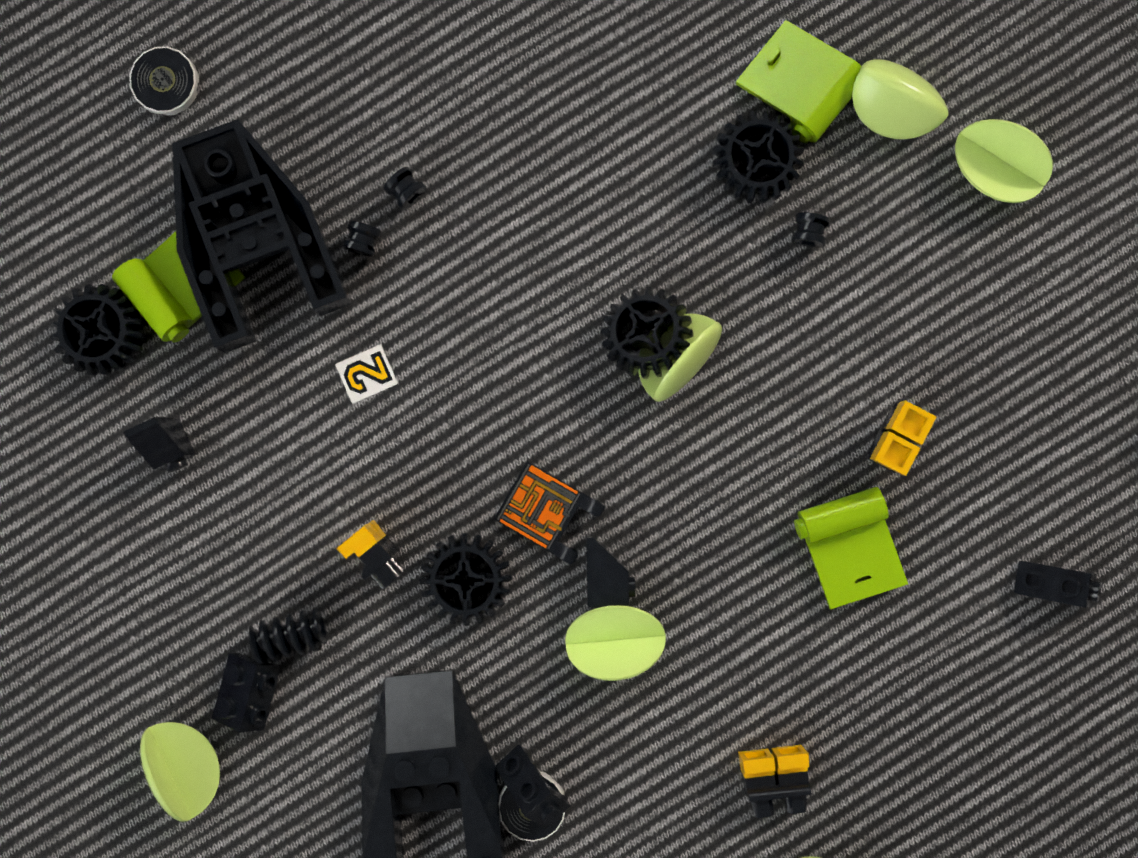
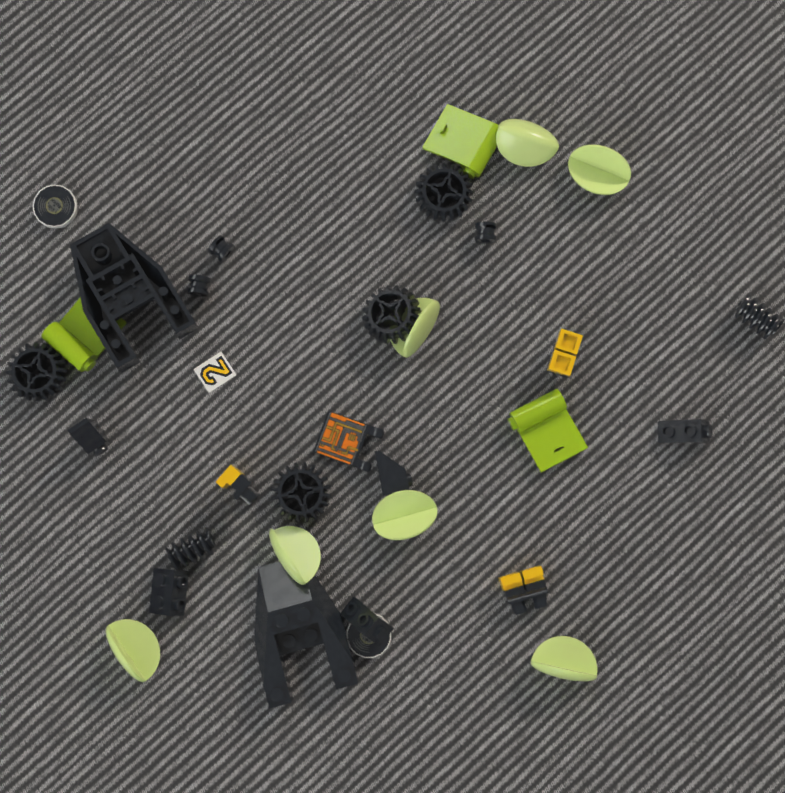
camera: 15 degrees left, 5 degrees down
(444, 668) = (296, 552): none -> yellowish green piece

